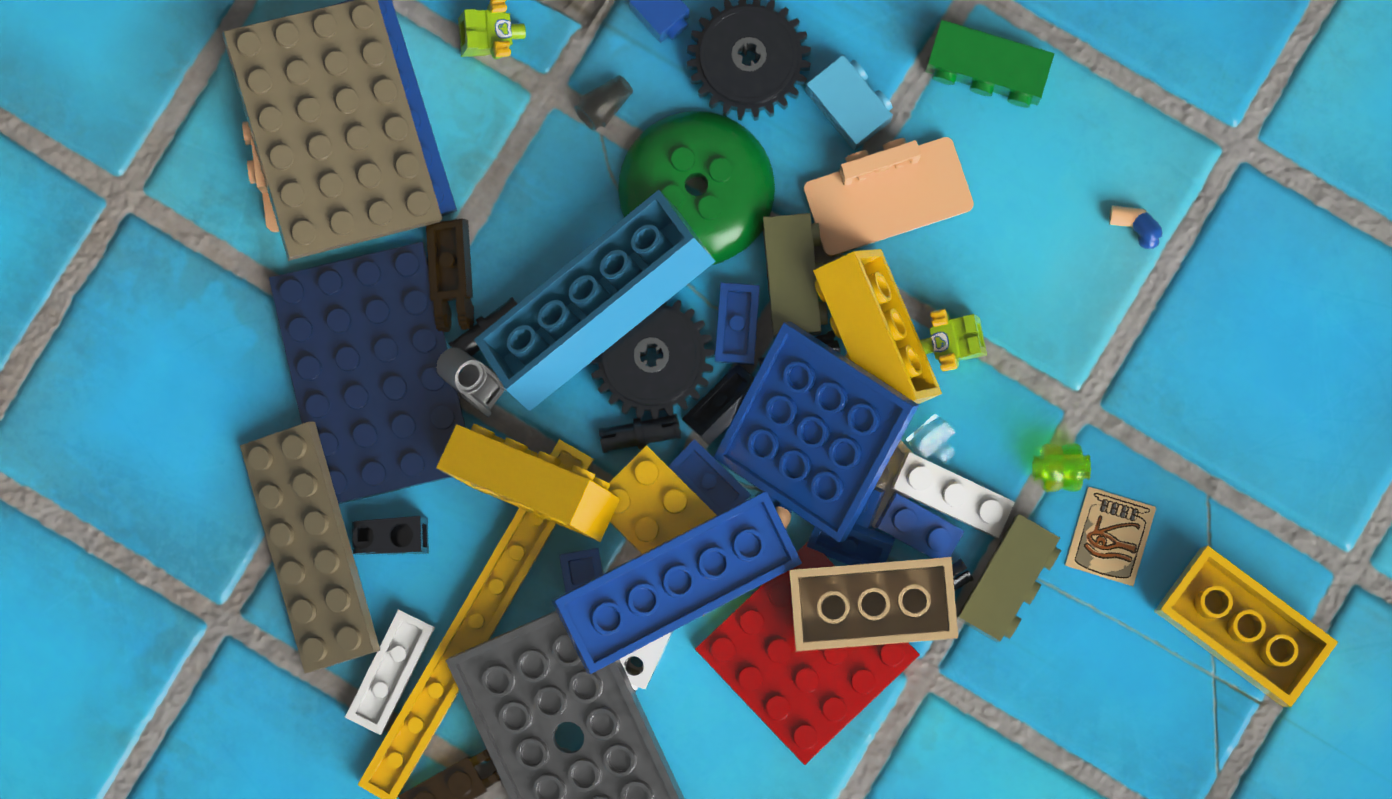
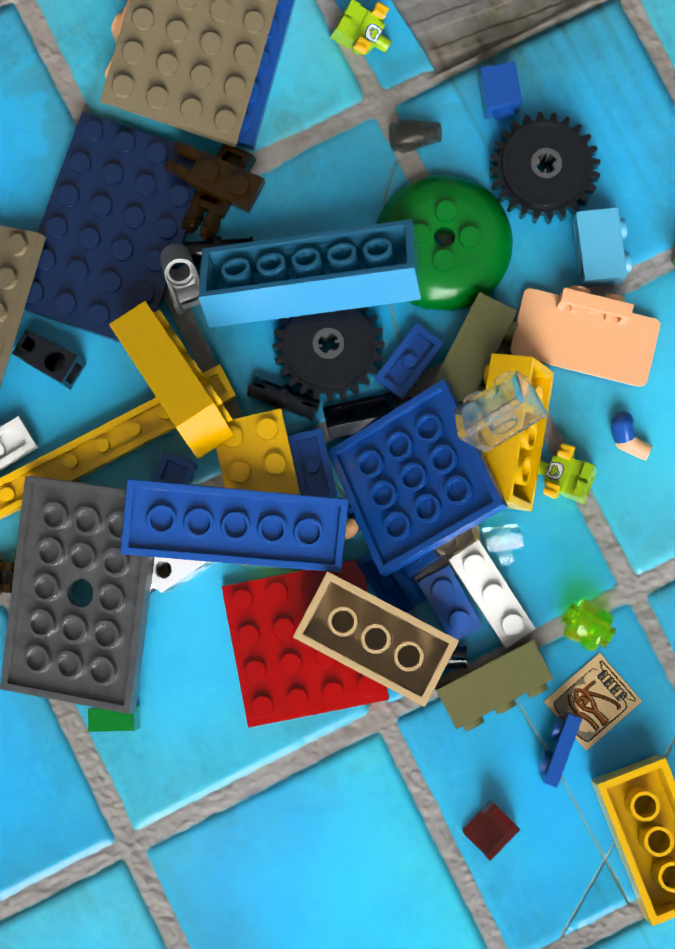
camera: 35 degrees right, 0 degrees up
(445, 262) = (217, 178): none -> dark brown hinge
(855, 322) = (498, 411): none -> clear slope
(985, 268) = (625, 437): none -> arm
(1090, 715) = (490, 830): none -> clear red panel
(1109, 616) = (554, 762): none -> blue plate

